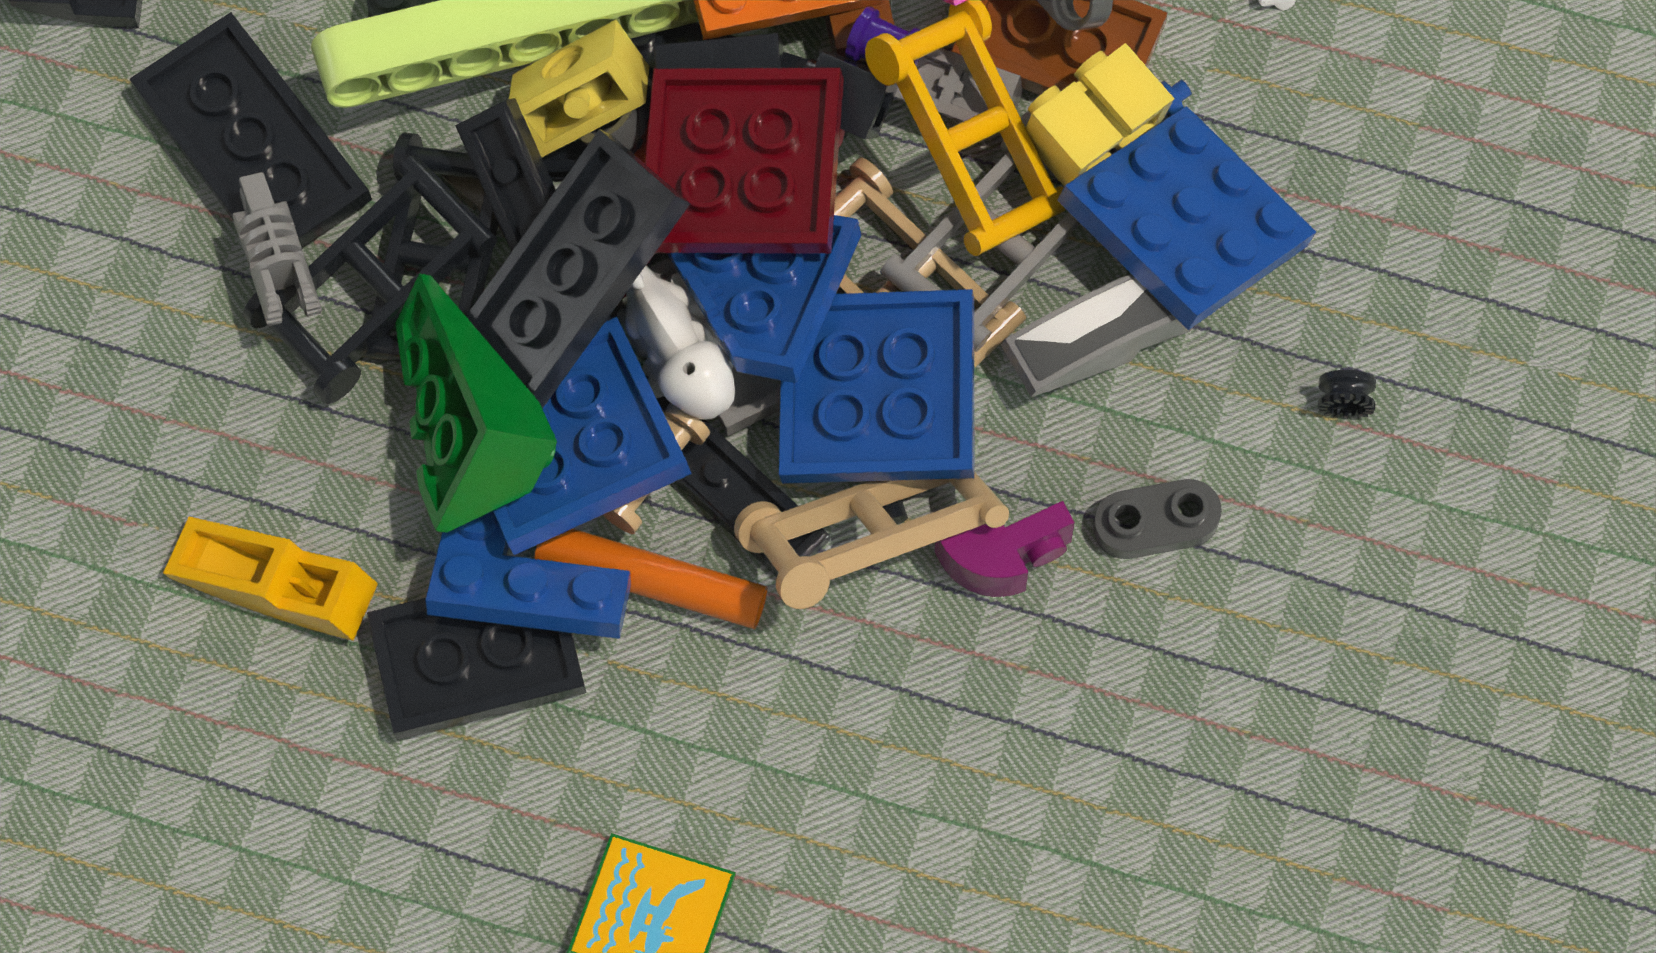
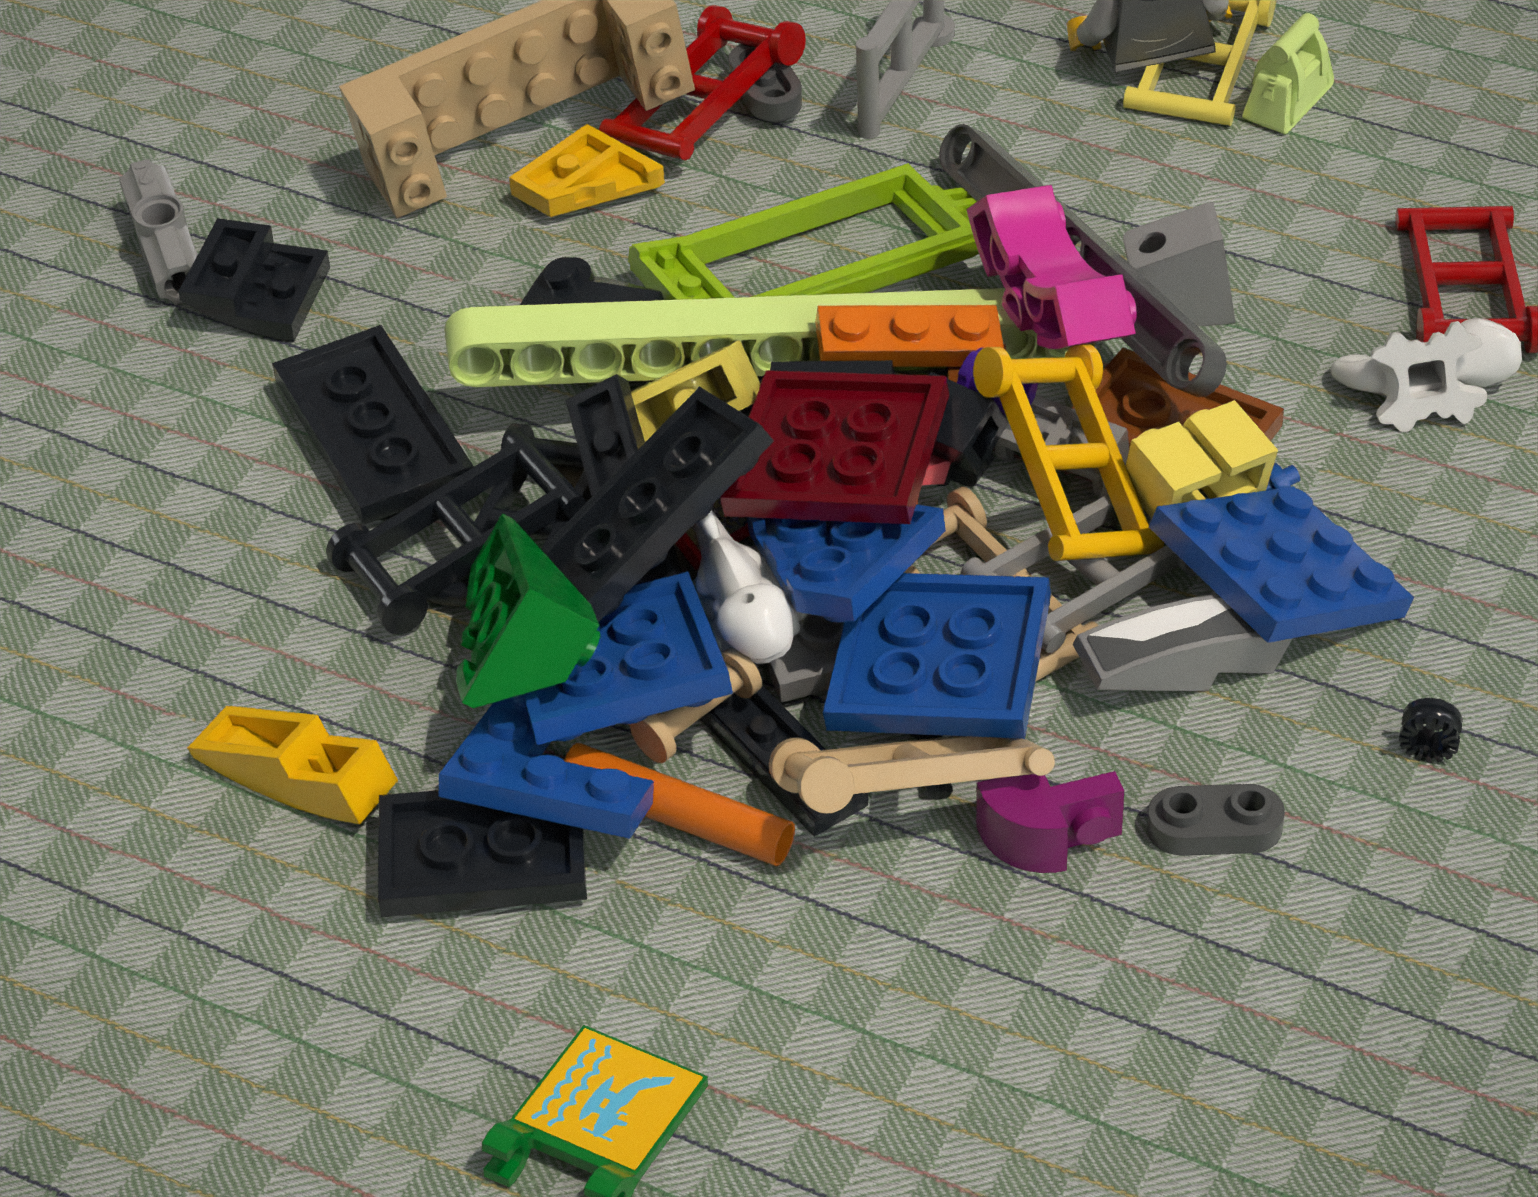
camera: 10 degrees right, 25 degrees down
(273, 249) = (367, 489): light grey hinge -> none

